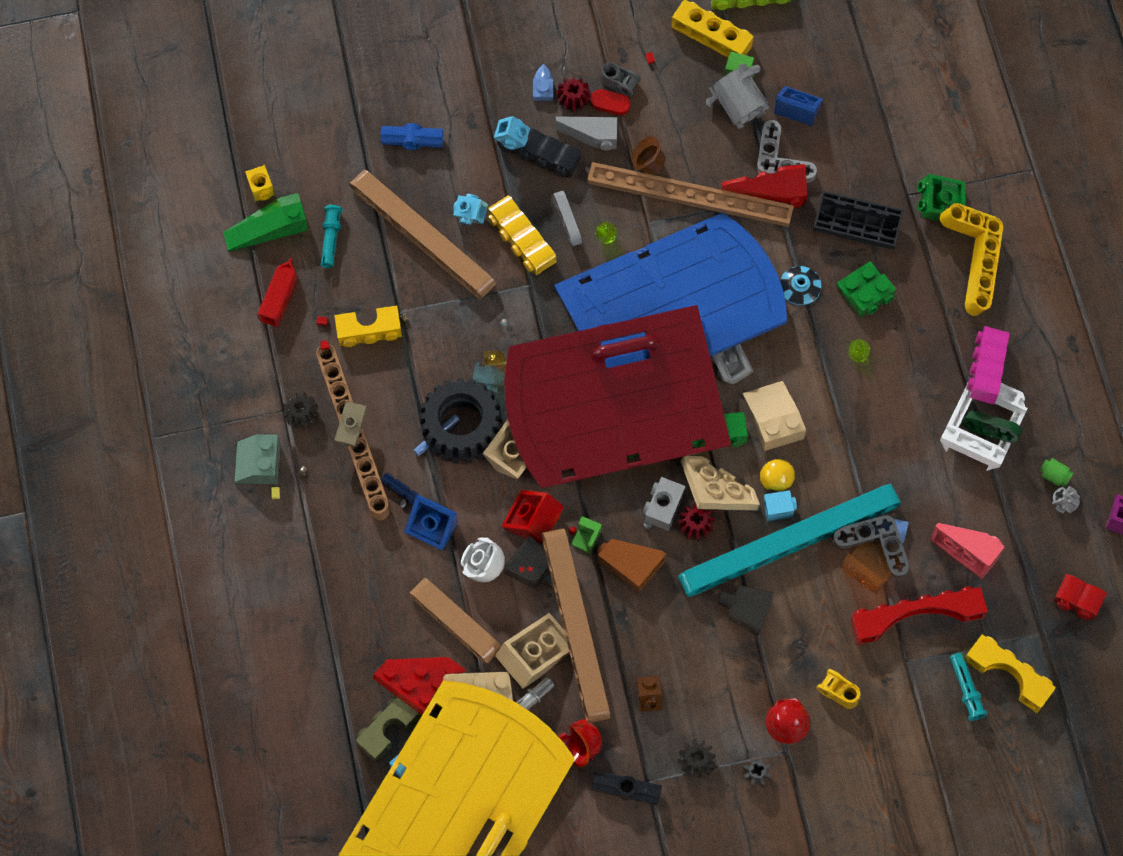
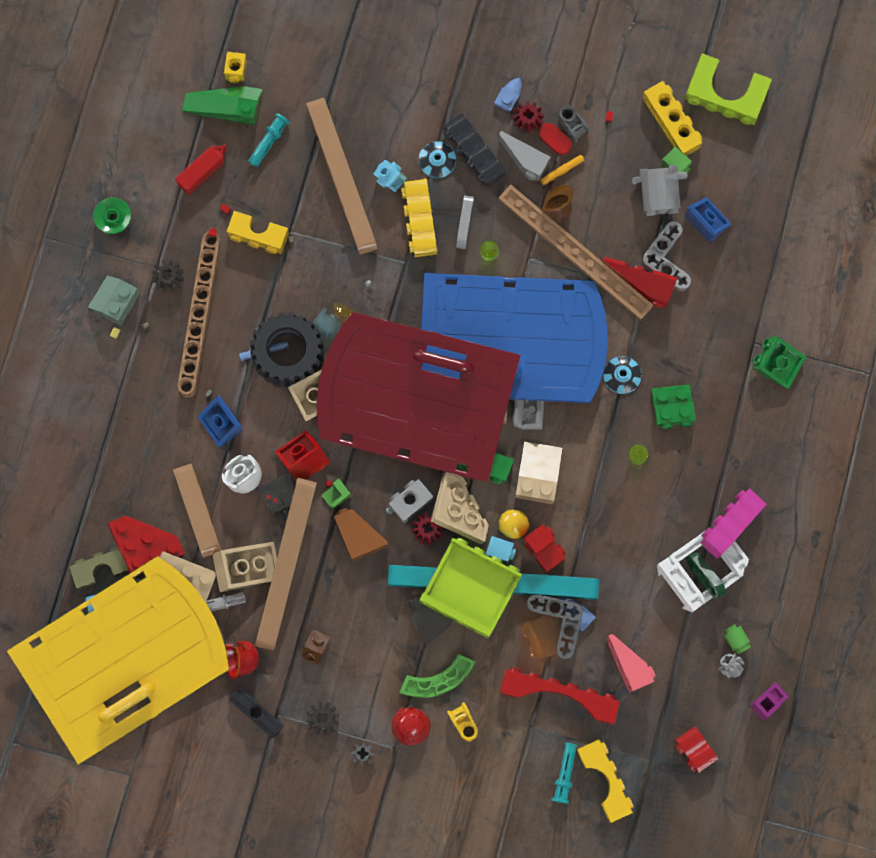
camera: 25 degrees right, 10 degrees up
(208, 373) = (110, 207): none -> green dish
(350, 424) = (198, 309): dark tan plate -> none
(399, 488) = (212, 379): dark blue axle -> none
(412, 136) = (378, 87): blue piece -> none
(509, 183) = (433, 167): none -> dish
(512, 133) = (455, 129): medium azure brick -> none
(634, 125) = (562, 170): none -> light orange piece
(773, 552) = (471, 587): none -> lime panel
(794, 664) = (440, 683): none -> bright green tile
(820, 482) = (543, 549): none -> red brick
(858, 220) = (698, 345): black piece -> none
(985, 252) = (782, 425): yellow beam -> none

